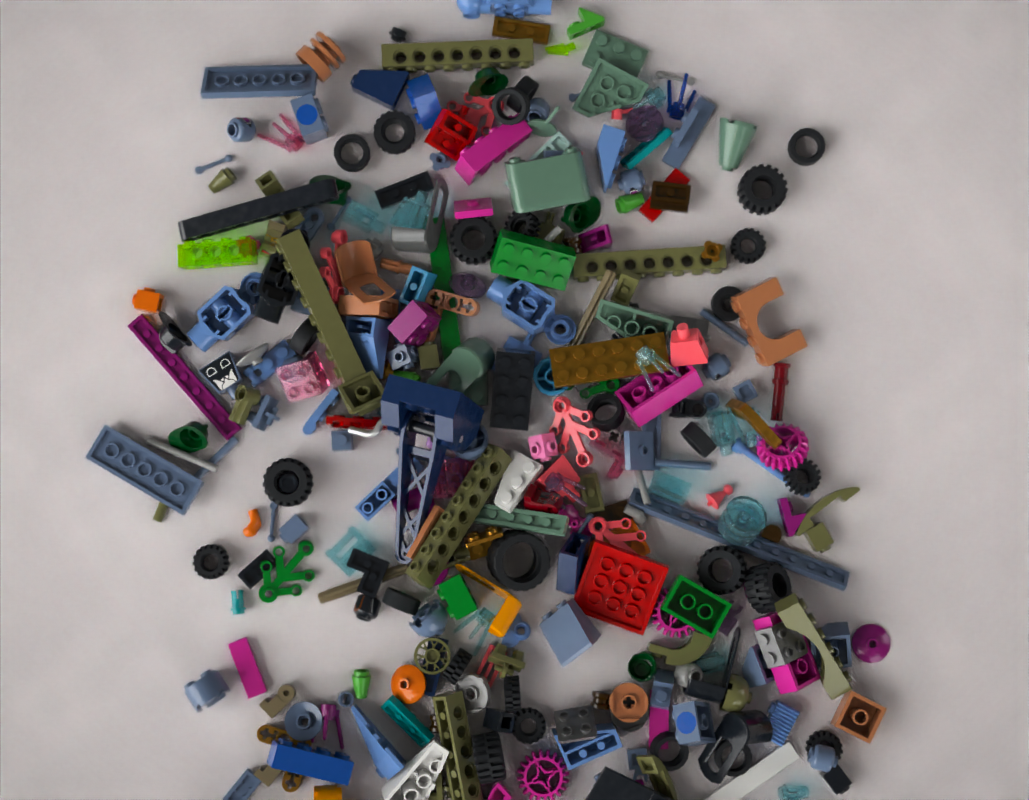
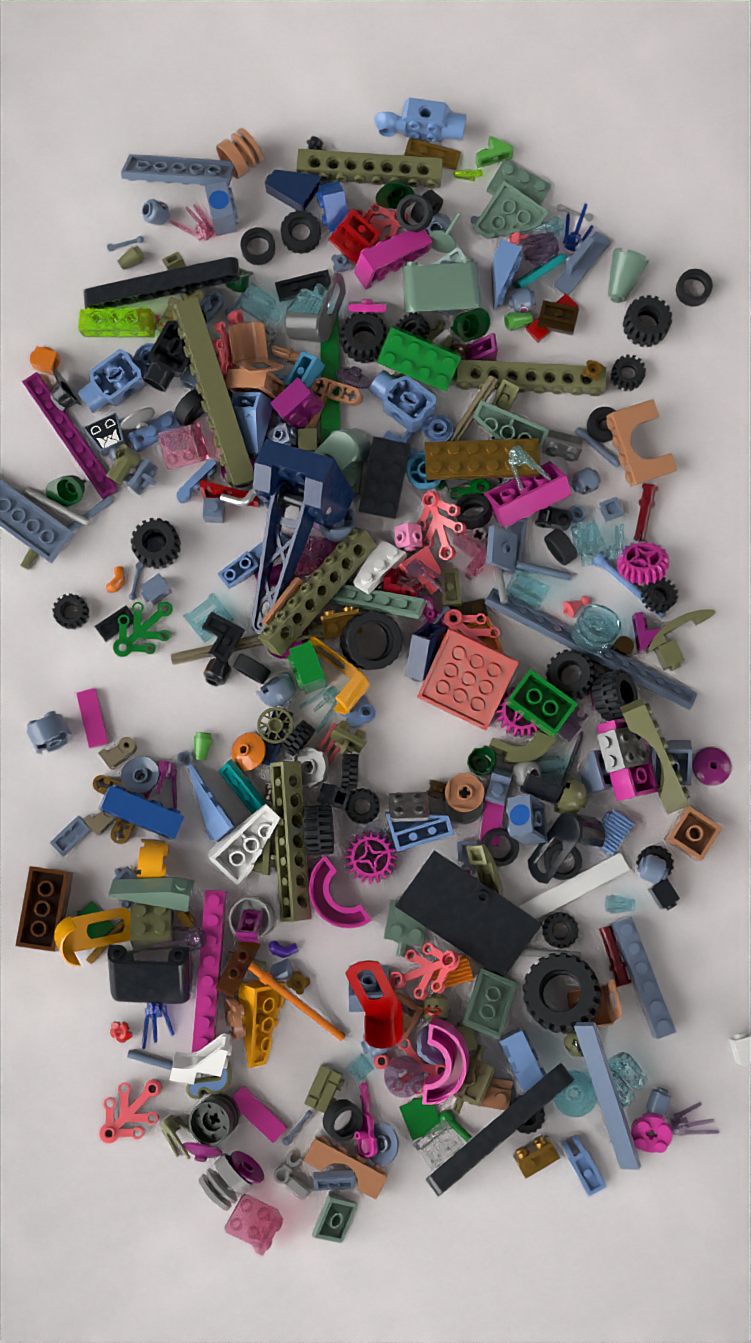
camera: 10 degrees right, 5 degrees down
(238, 604) = (91, 654): teal pin -> none
(361, 392) = (236, 461): olive slope -> none
(568, 631) = (412, 716): sand blue slope -> none
(638, 515) = (493, 613): light grey arm -> none
(687, 346) = (560, 452): coral torso -> none
(746, 413) = (611, 522): pearl gold beam -> none

